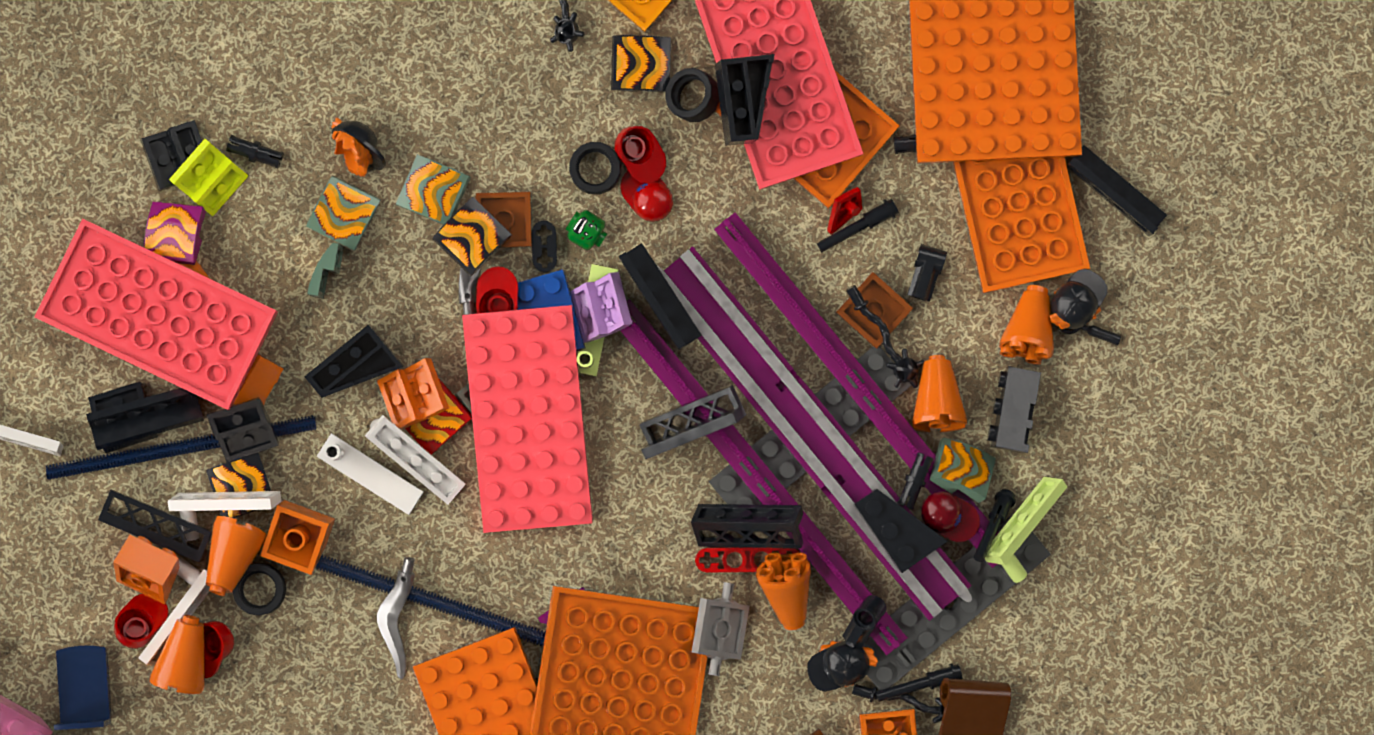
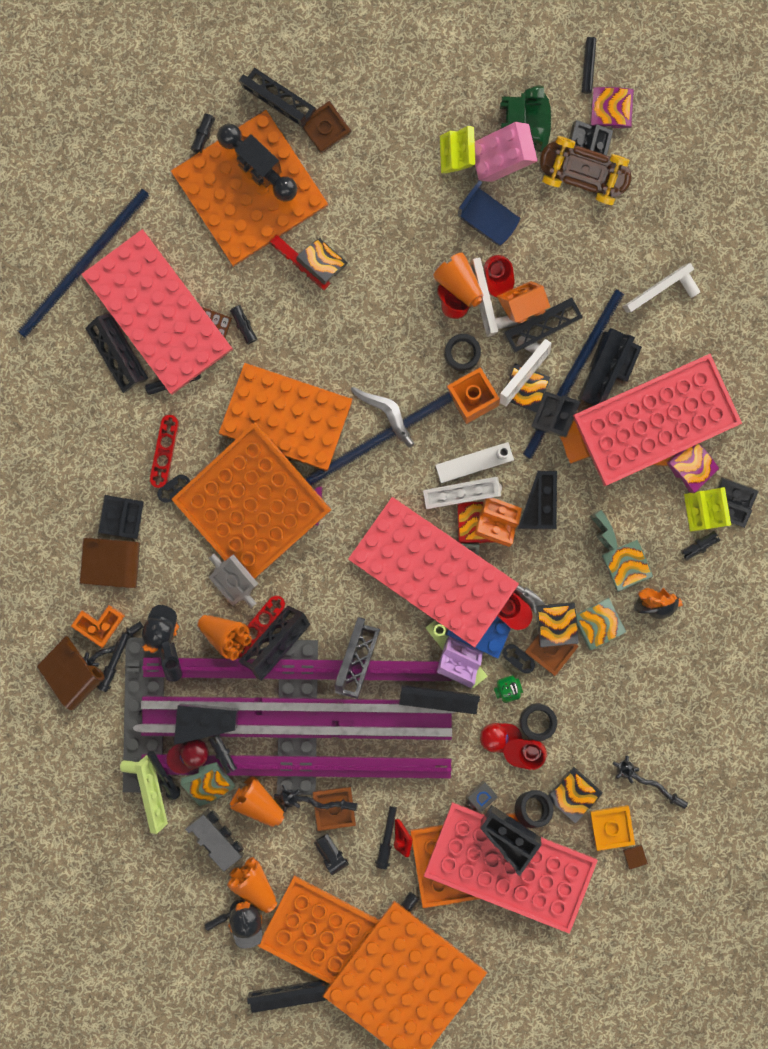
camera: 130 degrees right, 0 degrees up
(231, 553) = (494, 352): orange cone -> none
(727, 162) = (481, 797): none -> dark grey brick

